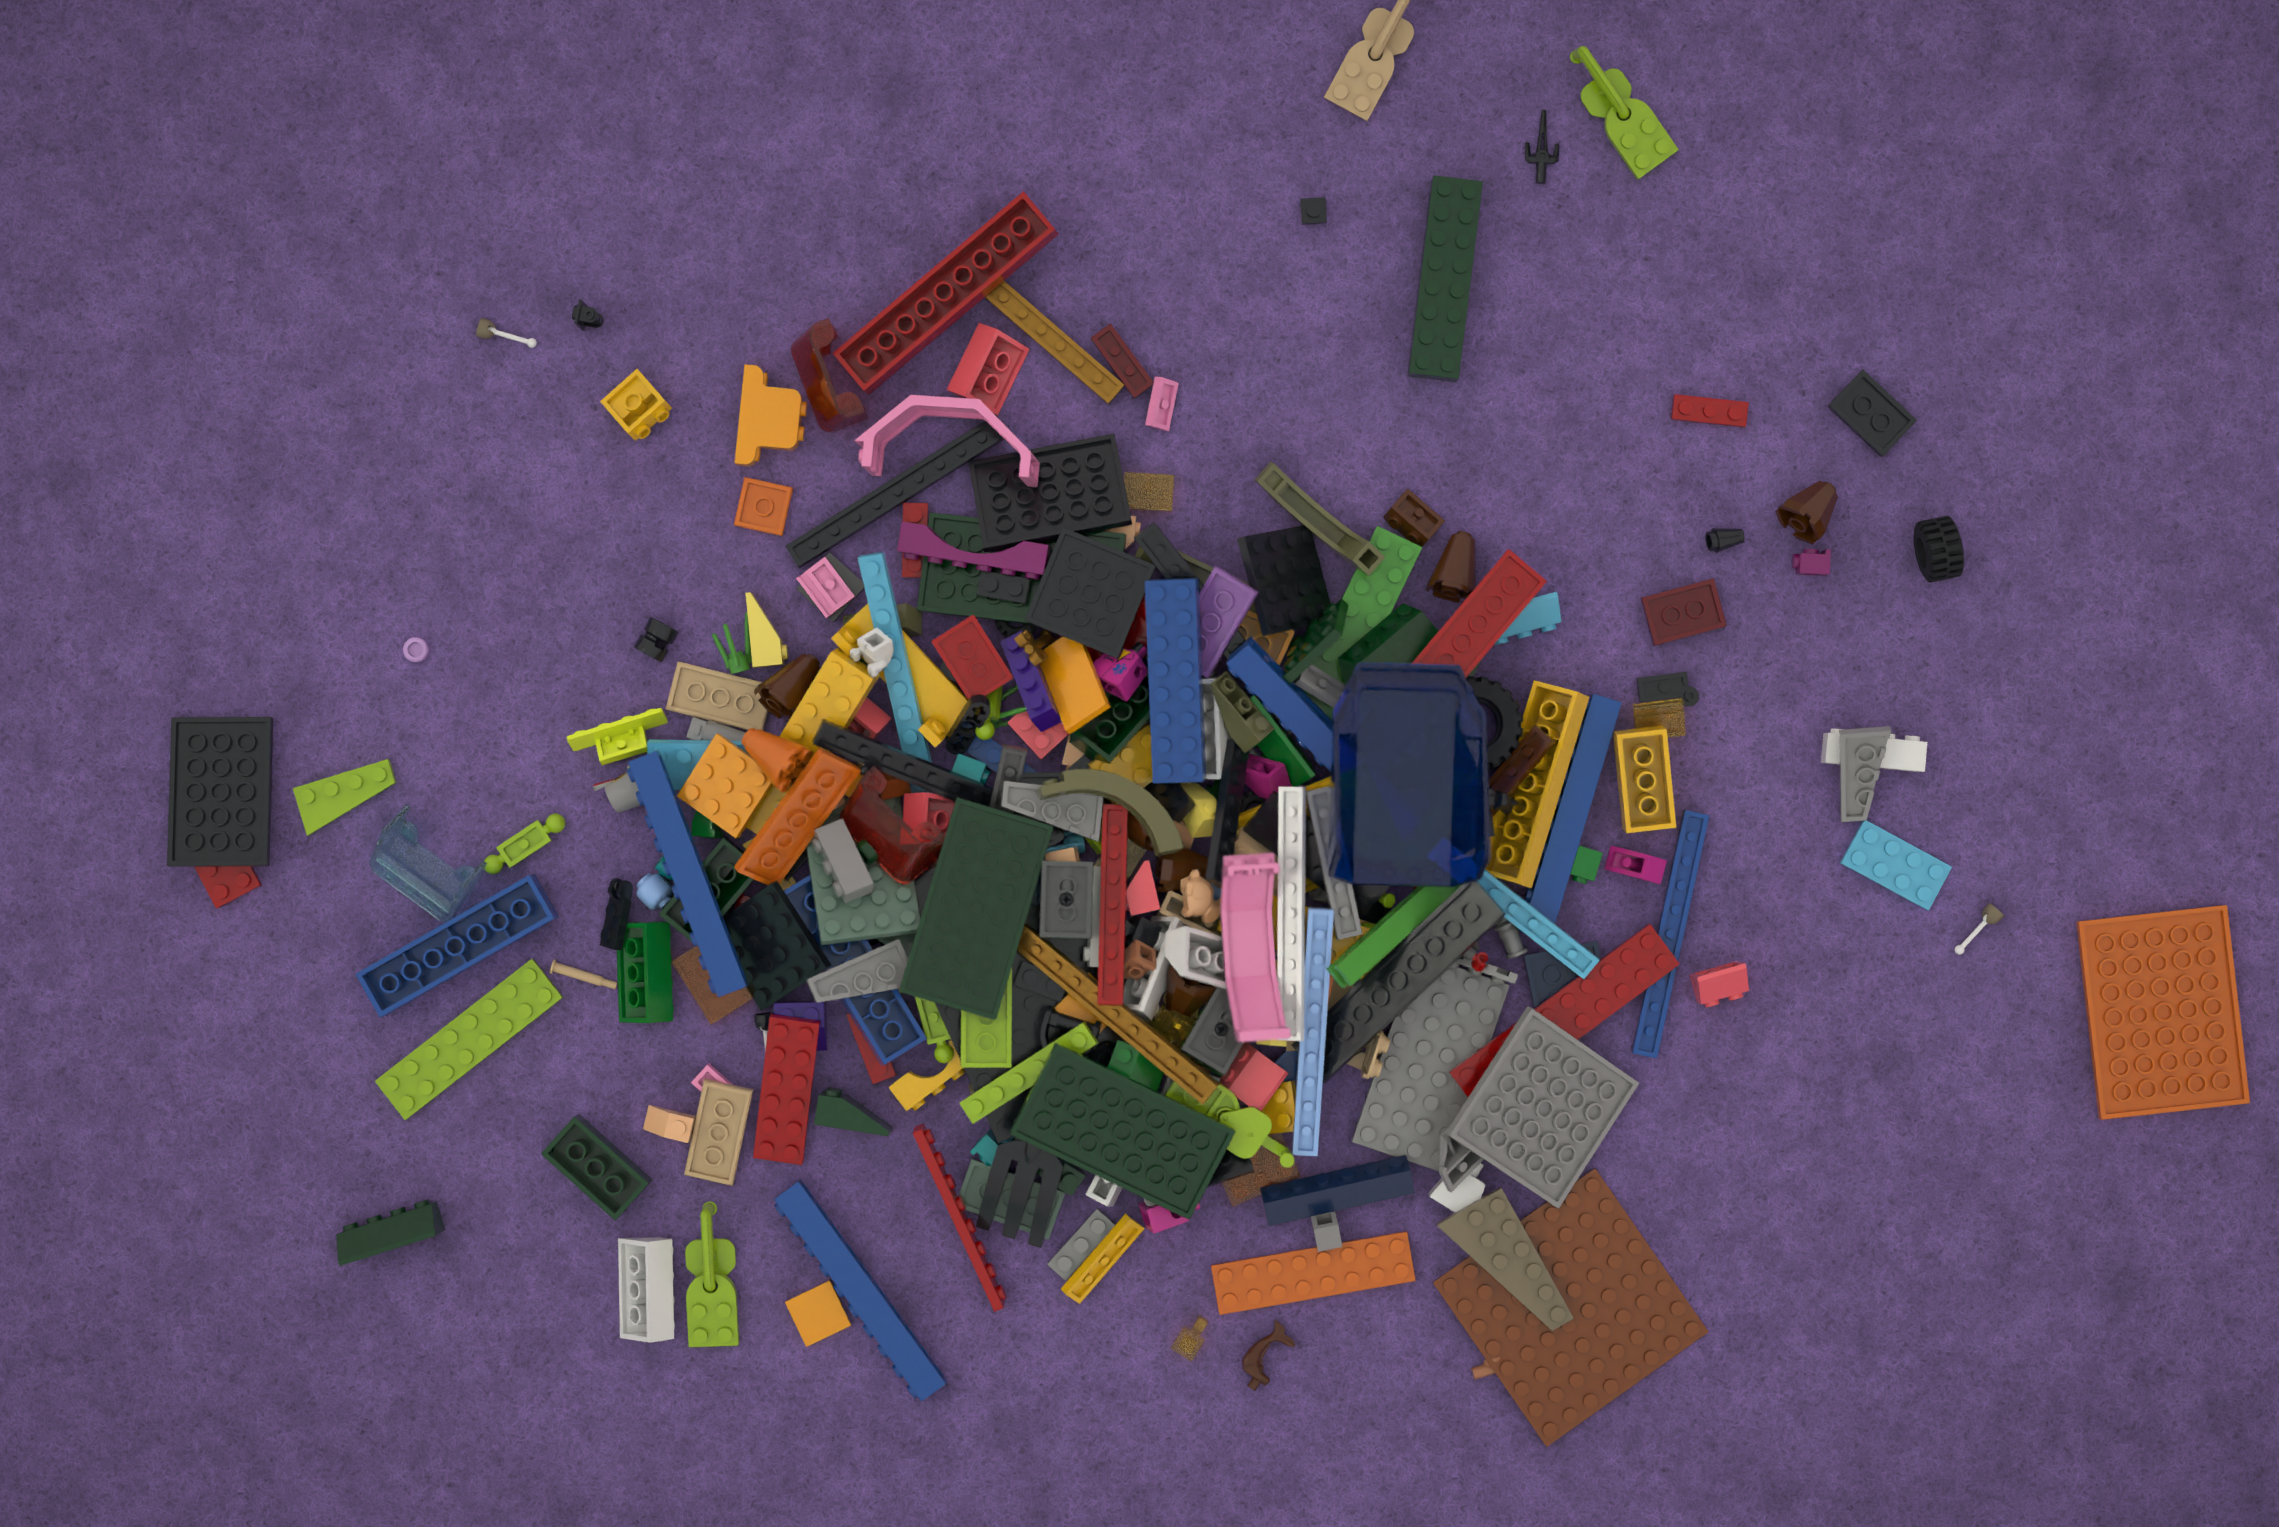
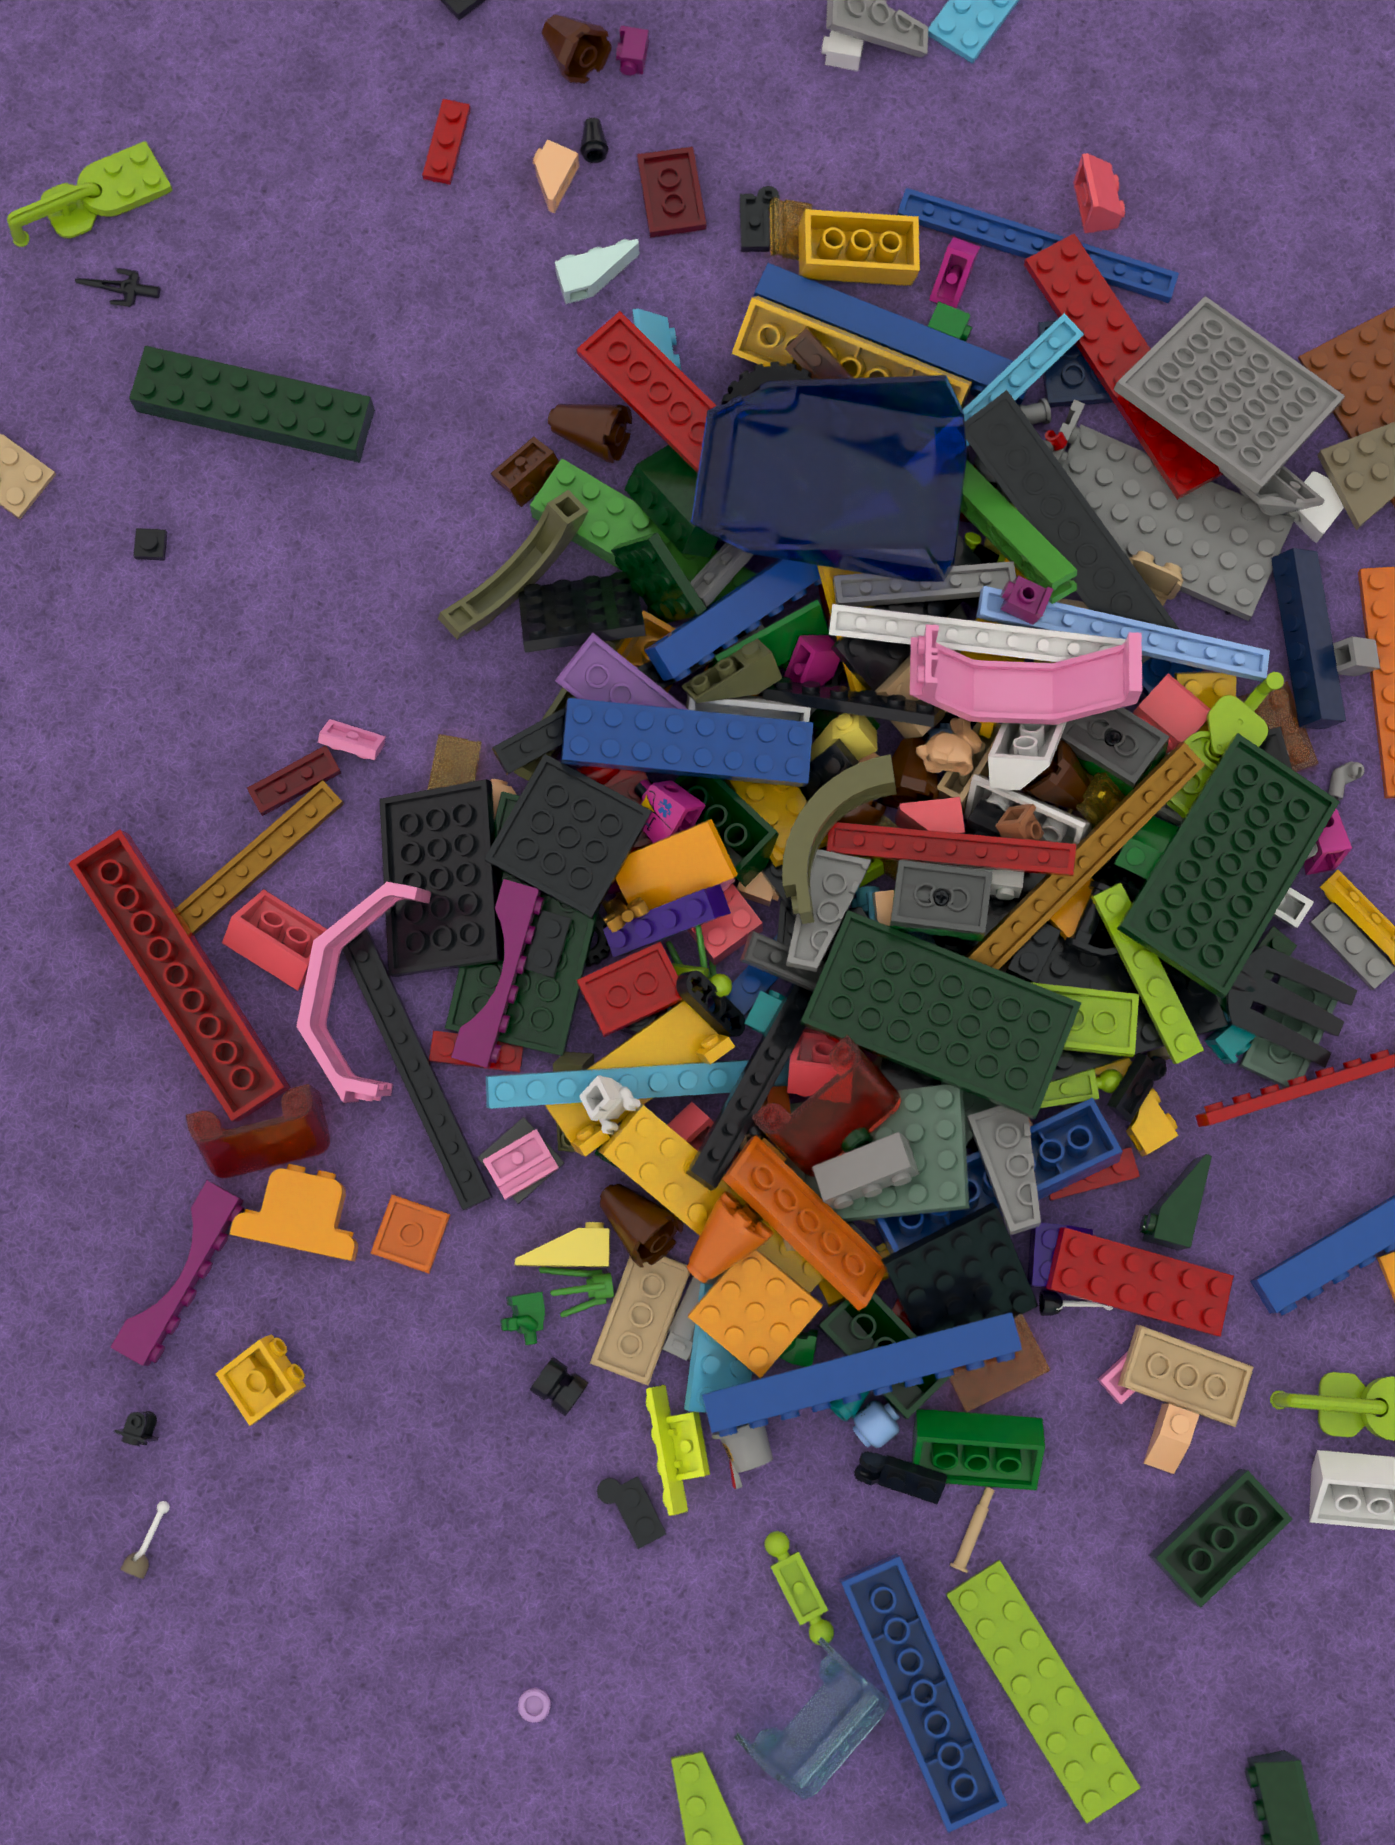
camera: 85 degrees left, 10 degrees down
(571, 709) = (634, 1507): none -> black hinge
(708, 607) = (527, 1315): none -> green piece
(758, 347) = (144, 1333): none -> magenta arch
(941, 1073) = (1136, 1085): none -> black hinge
(1224, 1227) = (1343, 775): none -> light grey arm
(1320, 935) = (1017, 605): none -> magenta brick
(1597, 548) = (589, 272): none -> light aqua slope
(1689, 508) = (555, 170): none -> light nougat slope

